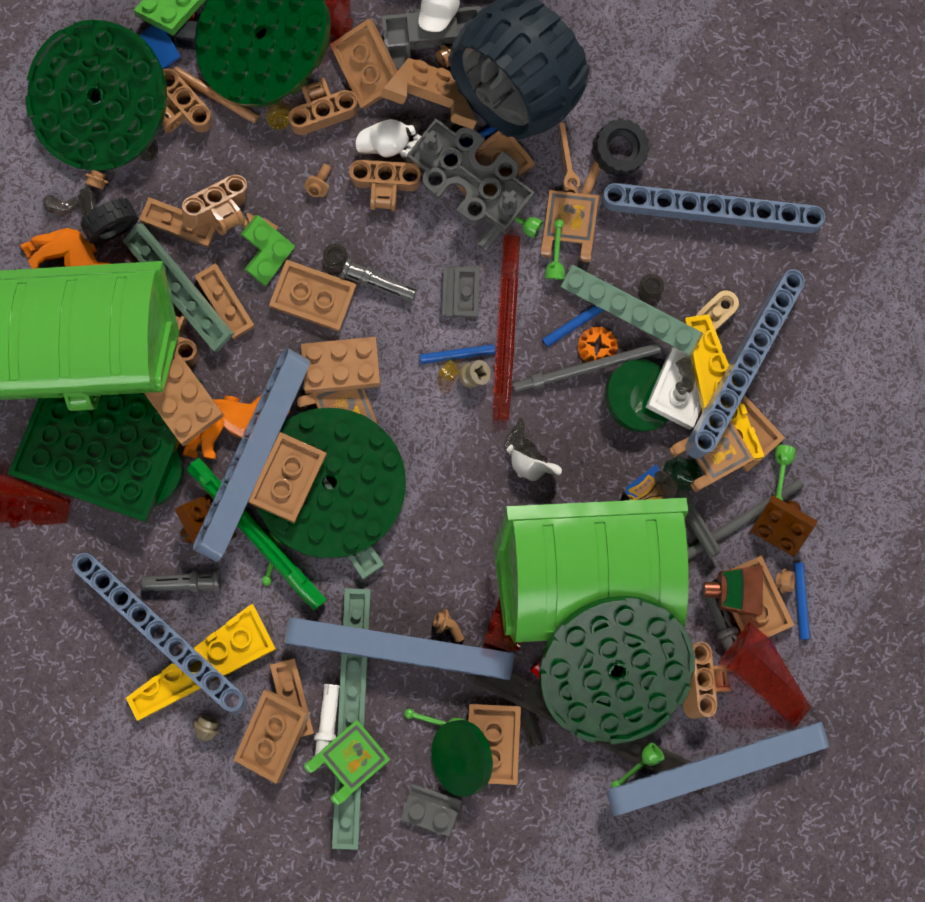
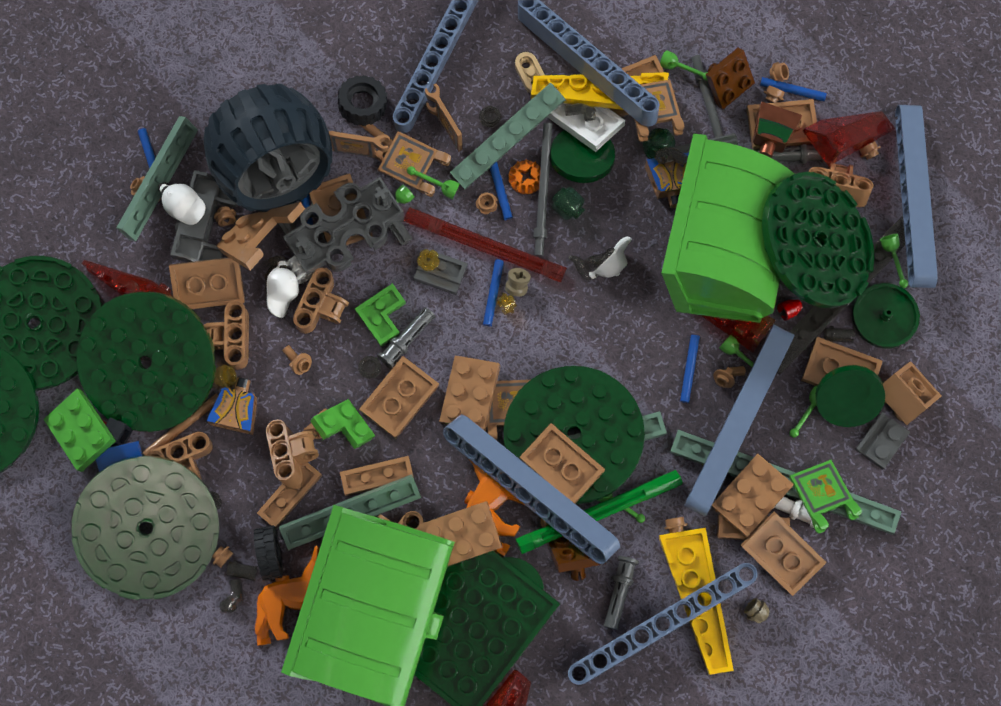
camera: 75 degrees left, 5 degrees down
(247, 139) = (235, 408): none -> torso
(269, 618) = (675, 524): none -> medium nougat plate
(322, 686) = (752, 495): none -> medium nougat plate
(394, 241) = (376, 311): none -> bright green plate
(443, 583) = (690, 367): none -> blue bar
(465, 280) = (432, 264): none -> clear yellow plate
(480, 619) = (731, 346): none -> bright green hinge
(491, 823) = (909, 393): none -> medium nougat slope
(553, 308) = (486, 197): none -> medium nougat plate
(572, 776) = (885, 315): none -> dark green piece
(580, 398) = (568, 203): none -> clear green head
(629, 236) = (444, 117): none -> medium nougat flag
(757, 706) = (870, 150): none -> medium nougat plate
(814, 579) = (779, 72): none -> medium nougat plate

